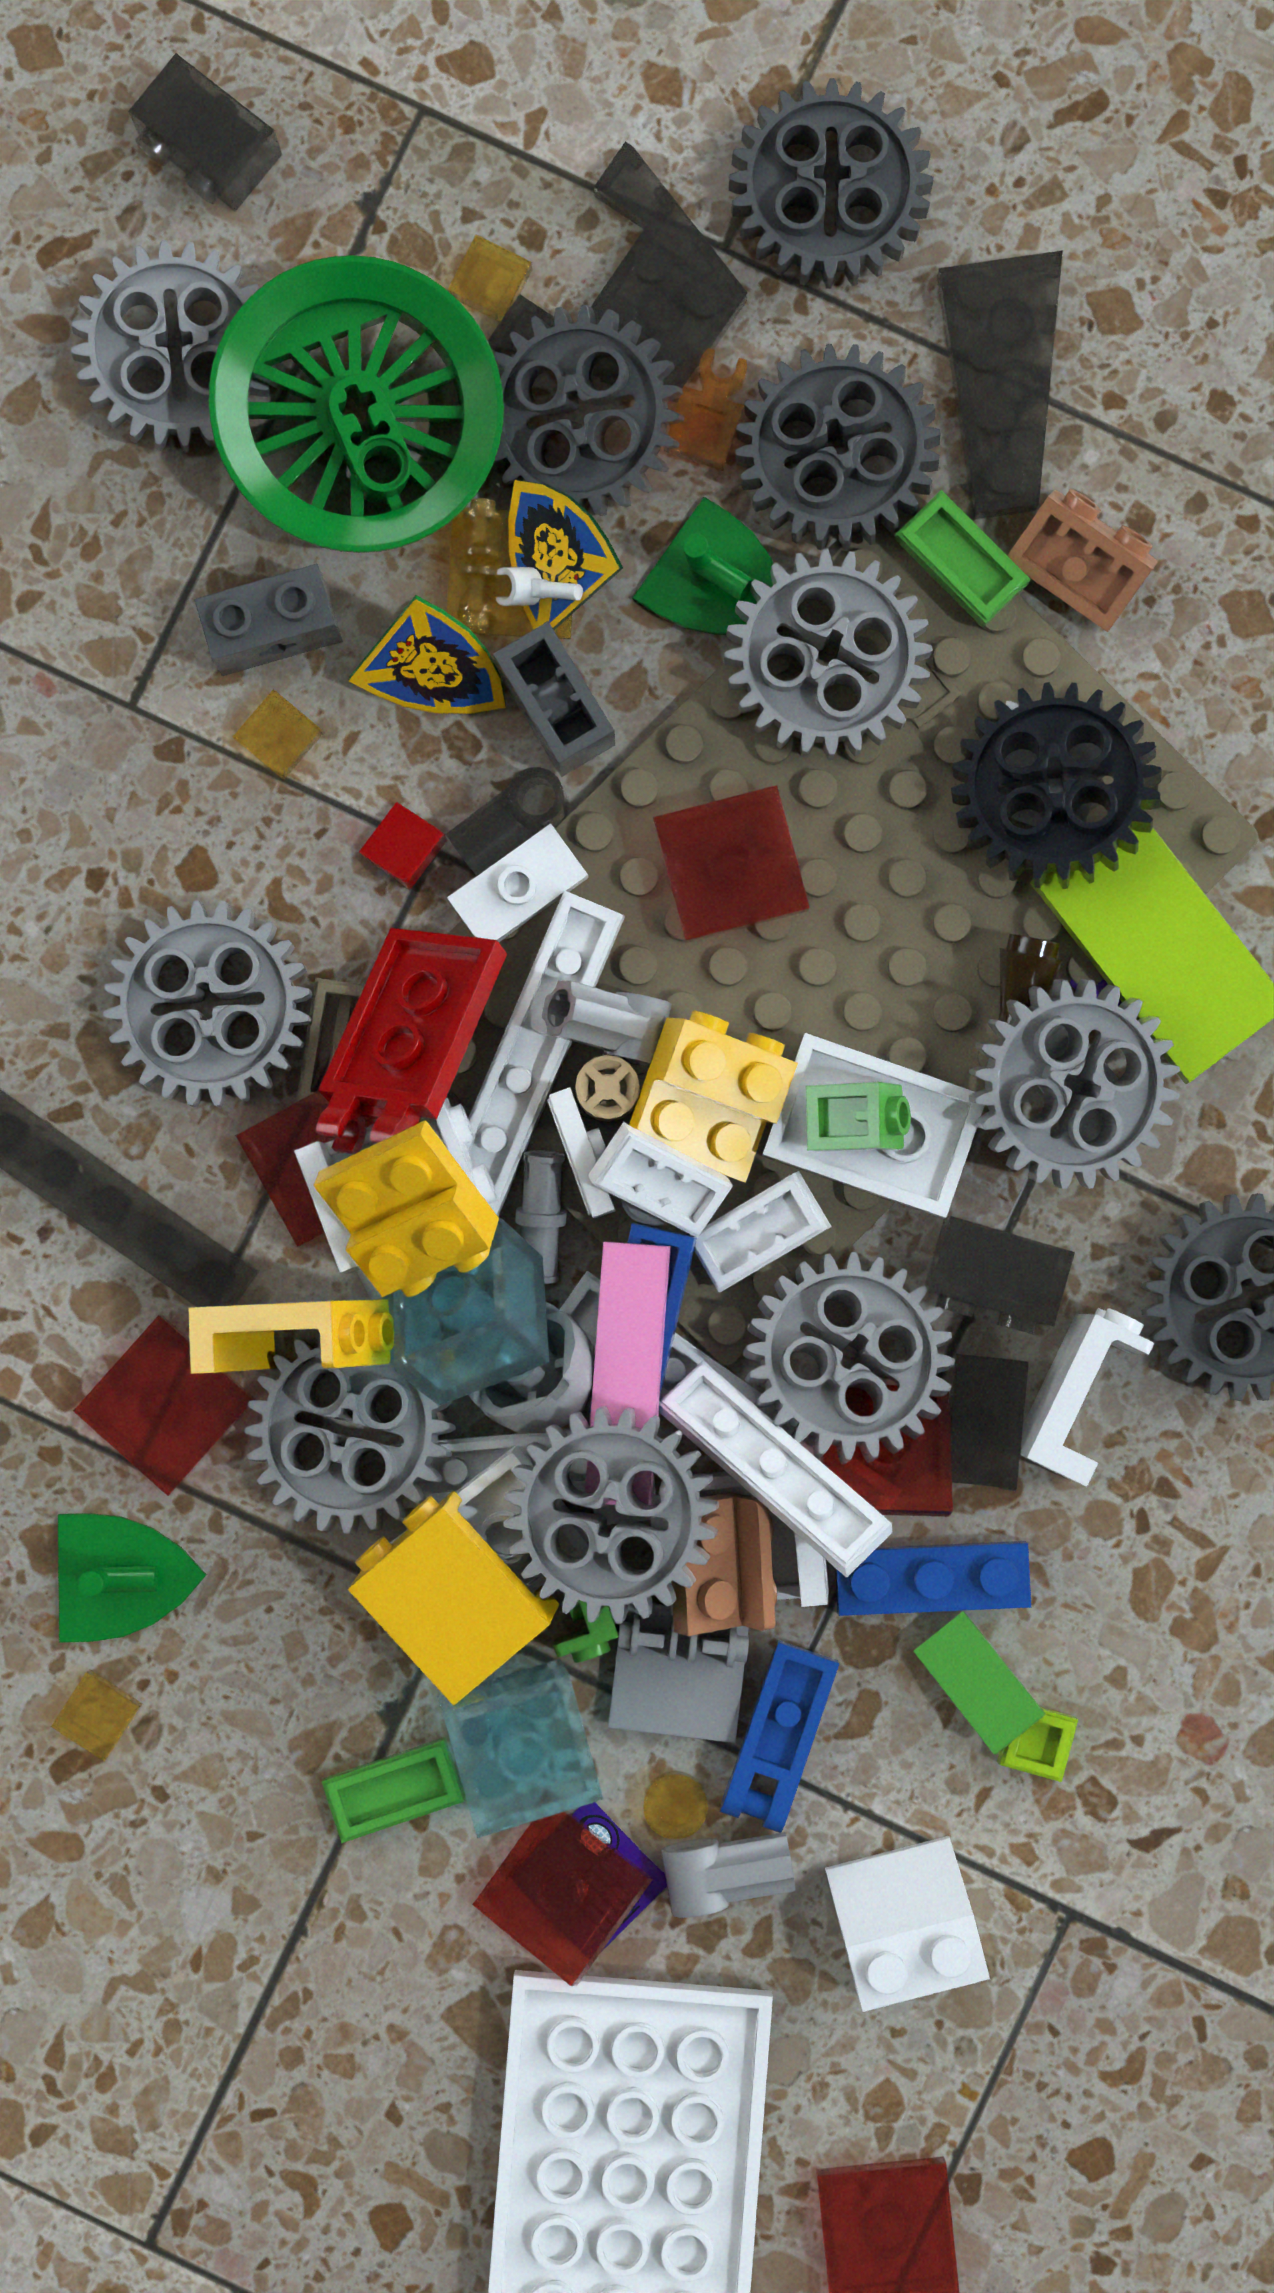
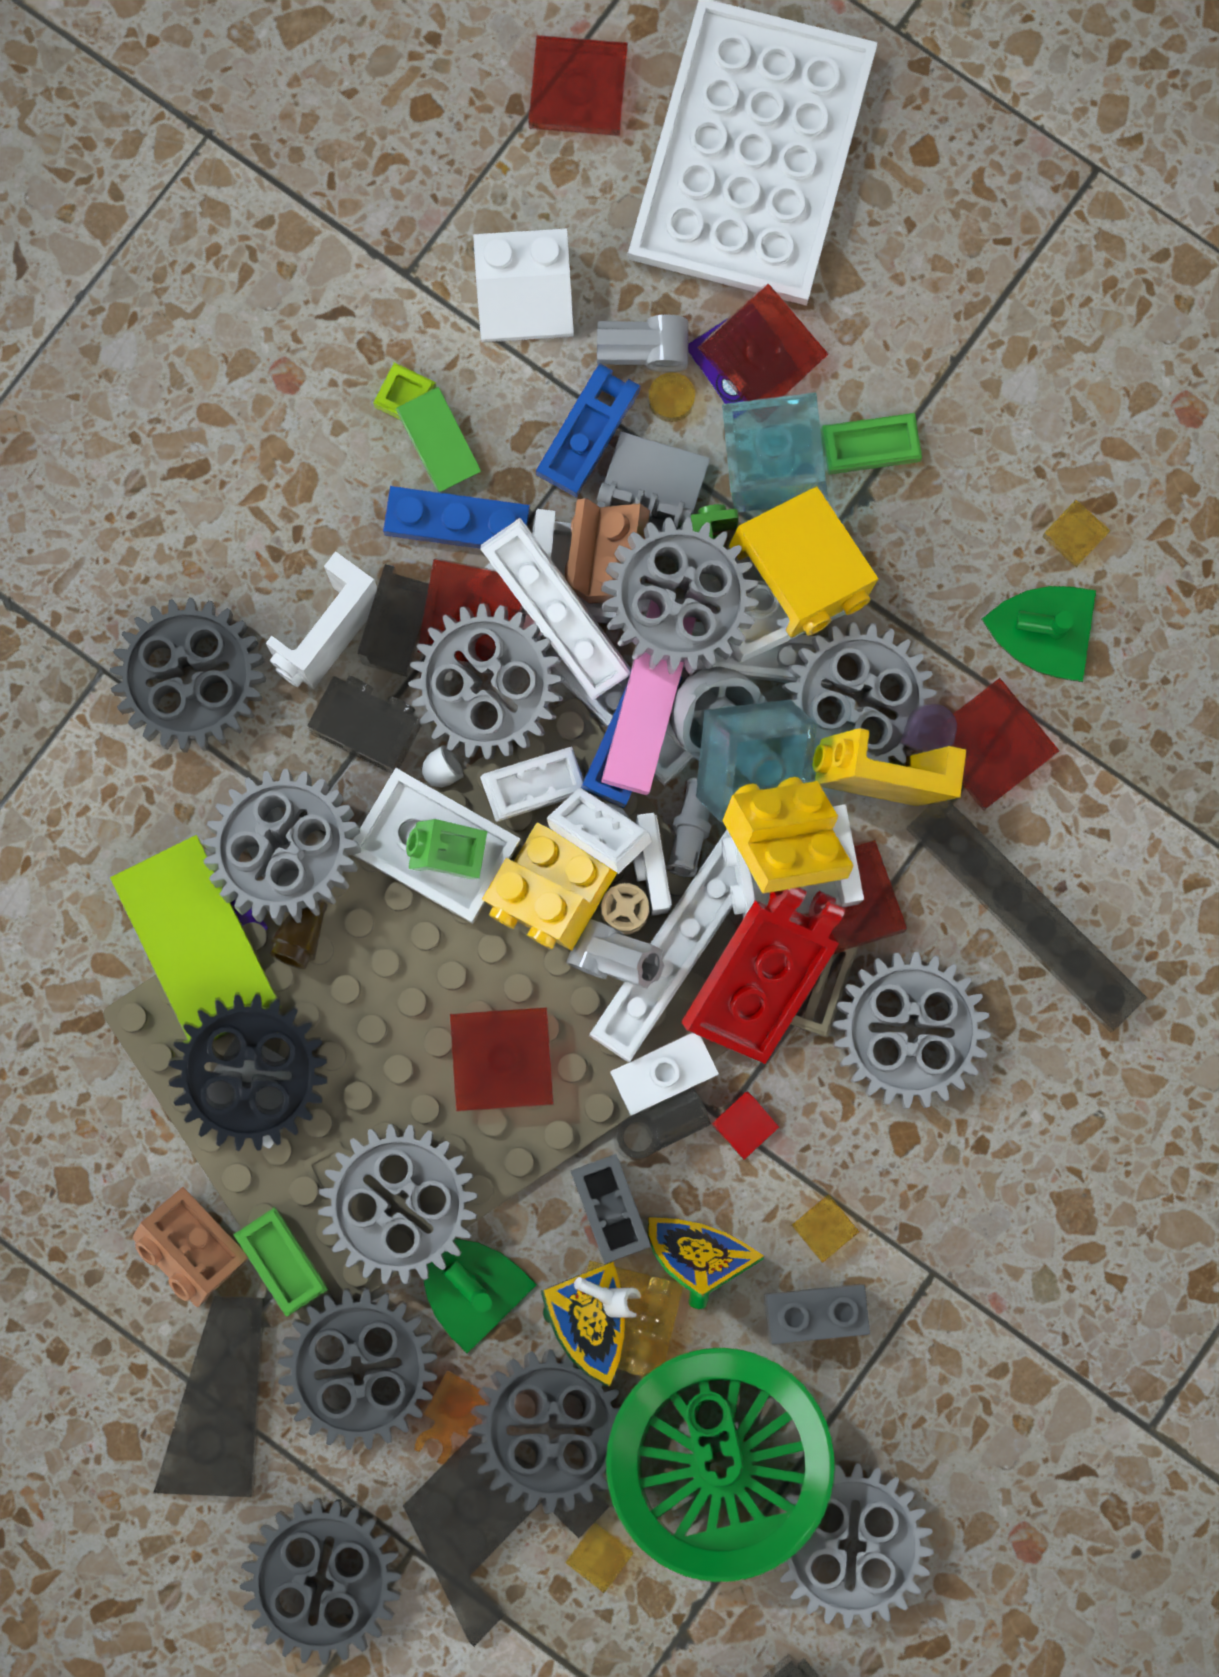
camera: 170 degrees left, 5 degrees down
(247, 1404) = (930, 728): none -> clear purple tile
(884, 1235) = (442, 768): none -> white hinge

